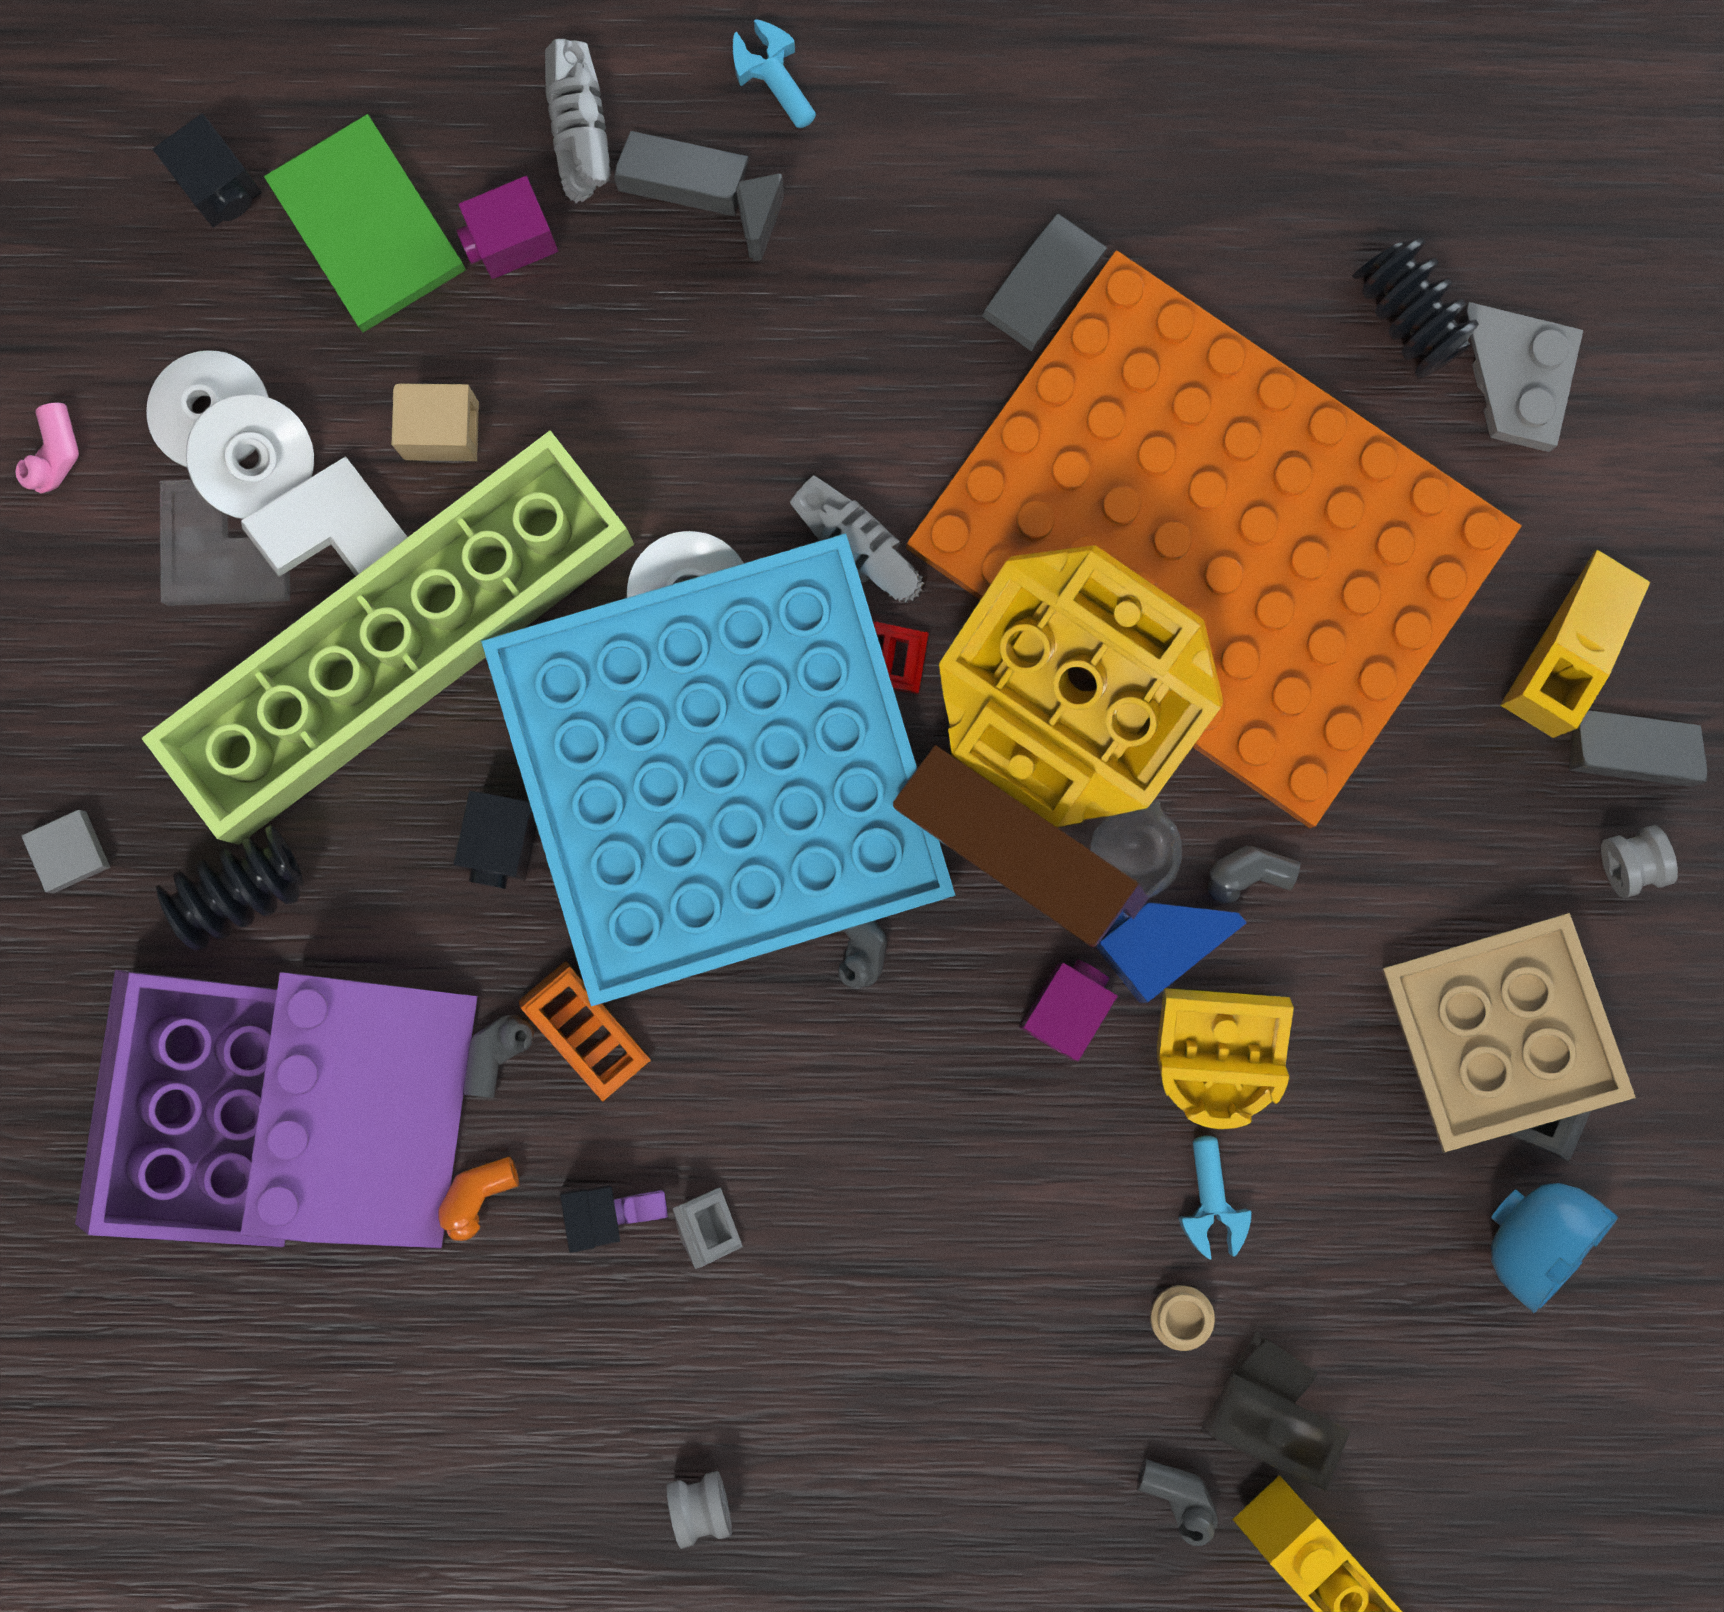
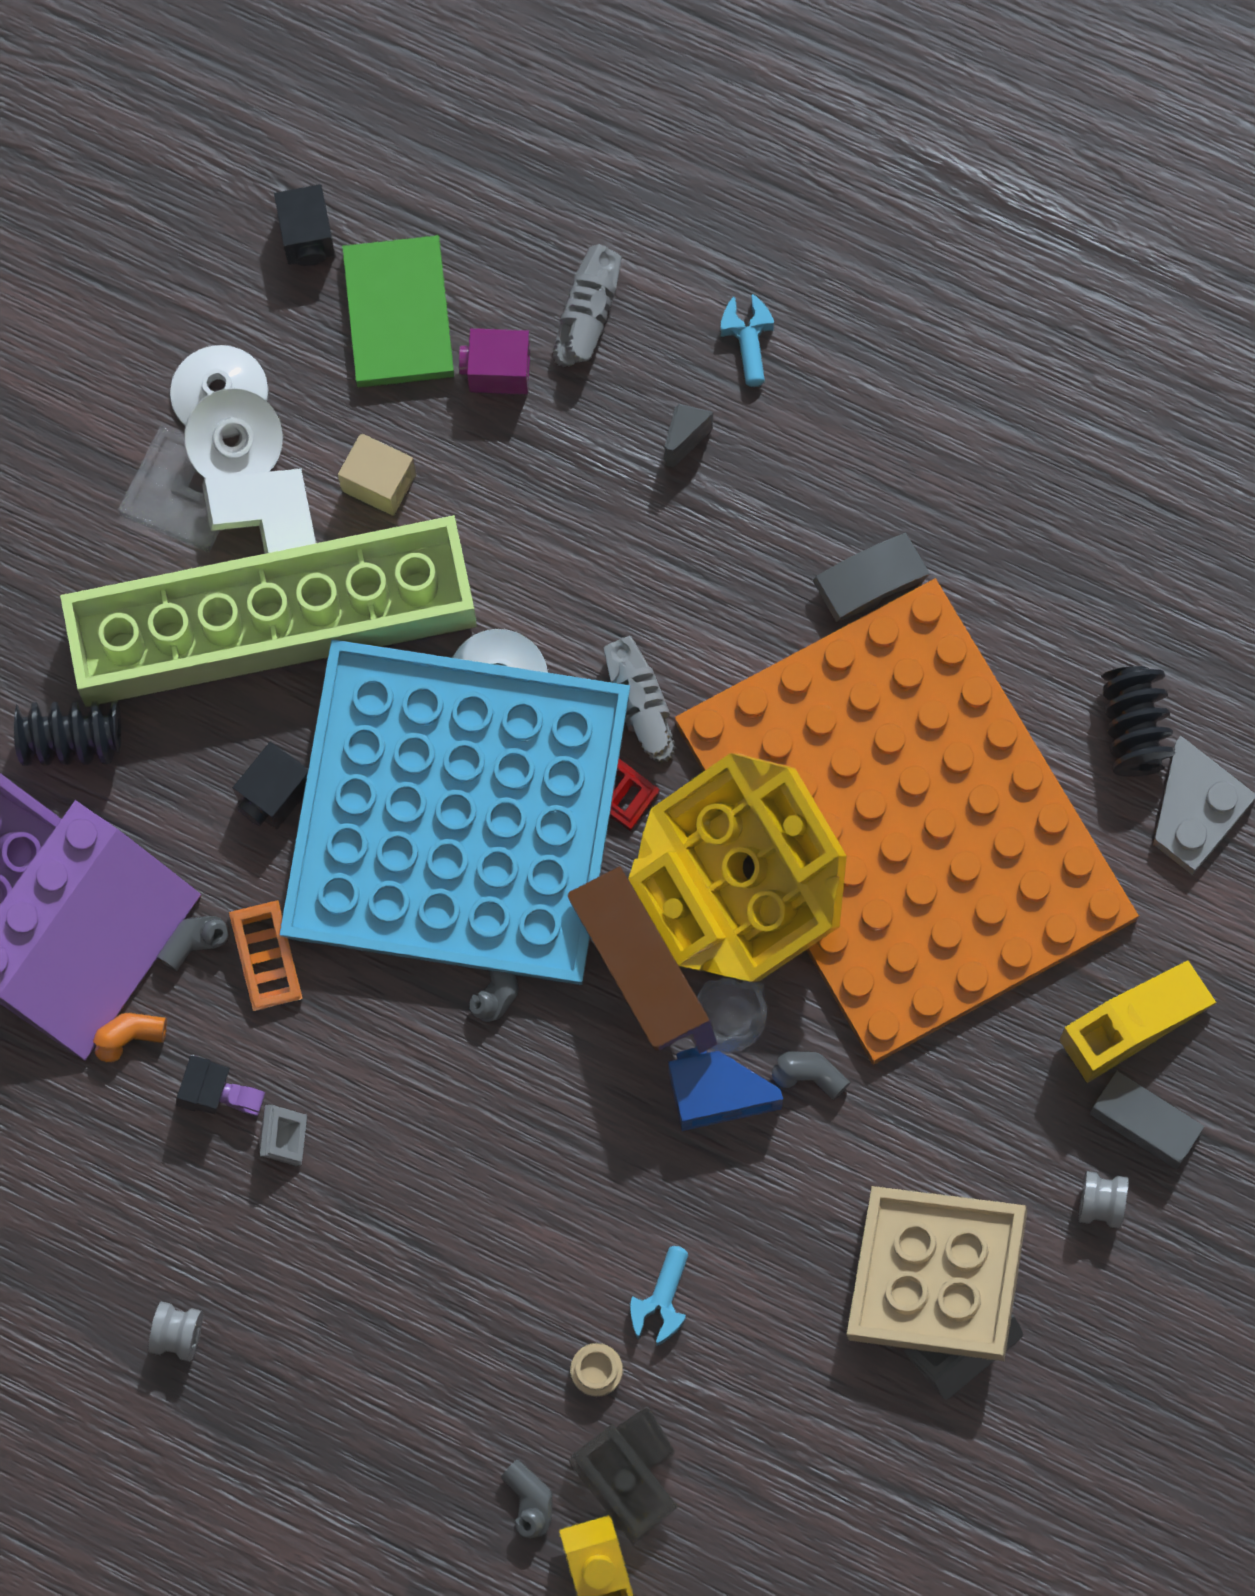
camera: 30 degrees right, 10 degrees down
(57, 454) = (96, 374): bright pink arm -> none
(680, 173) = (643, 377): dark grey slope -> none
(1069, 1008) = (624, 1104): magenta brick -> none
(1223, 1054) = (721, 1191): yellow slope -> none
(1545, 1239) = (892, 1439): dark azure cylinder -> none

